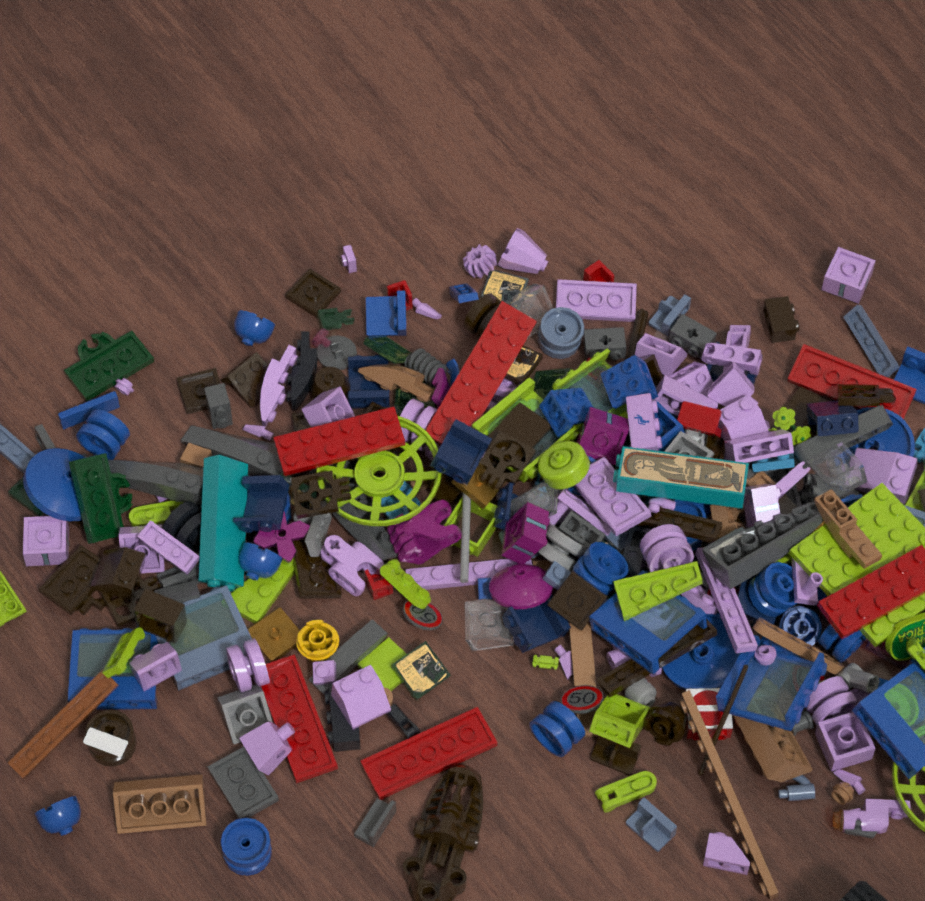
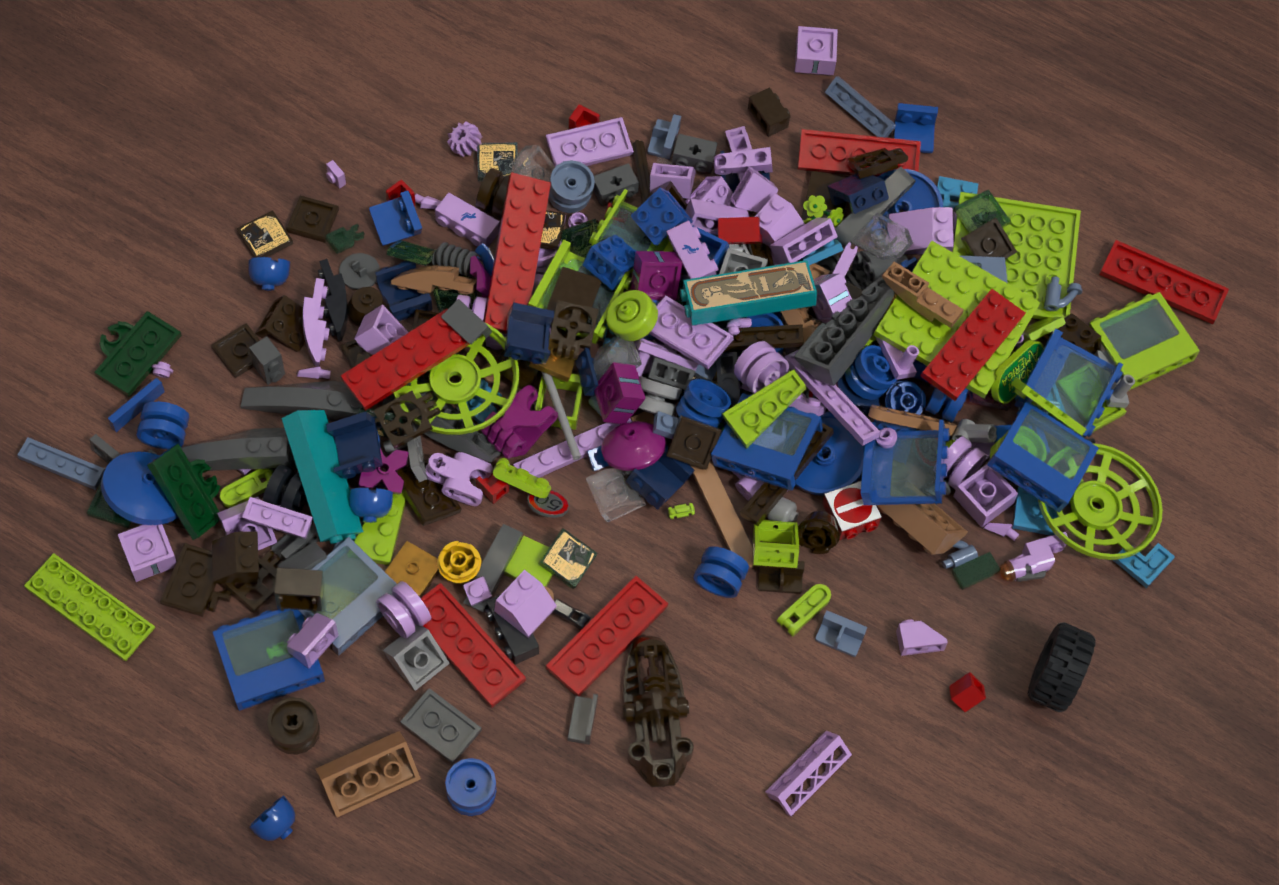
camera: 25 degrees left, 5 degrees up
(62, 724) = (241, 728): dark orange plate -> none
(105, 742) = (293, 732): white sticker -> none
(123, 652) = (276, 638): lime plate -> none
(195, 455) = (265, 418): medium nougat brick -> none
(264, 295) = (265, 235): none -> tile
(268, 745) = (452, 680): lavender torso -> none
(320, 338) = (340, 262): clear pink tile -> none
(405, 423) = (466, 322): none -> dark grey panel
(450, 334) = (467, 220): none -> lavender brick
(463, 293) = (463, 175): blue tile -> none
(523, 254) = (503, 120): lavender cone -> none
(556, 363) = (576, 217): none -> lavender plate
(565, 660) = (699, 504): lavender bar -> none
(582, 699) = (733, 535): piece -> none
(725, 714) = (872, 512): dark brown axle -> none
(731, 803) = (908, 587): medium nougat plate -> none
(808, 810) = (976, 570): none -> clear green tile
(842, 793) = (1001, 544): medium nougat plate -> none
(880, 775) = (1029, 515): none -> dark azure plate

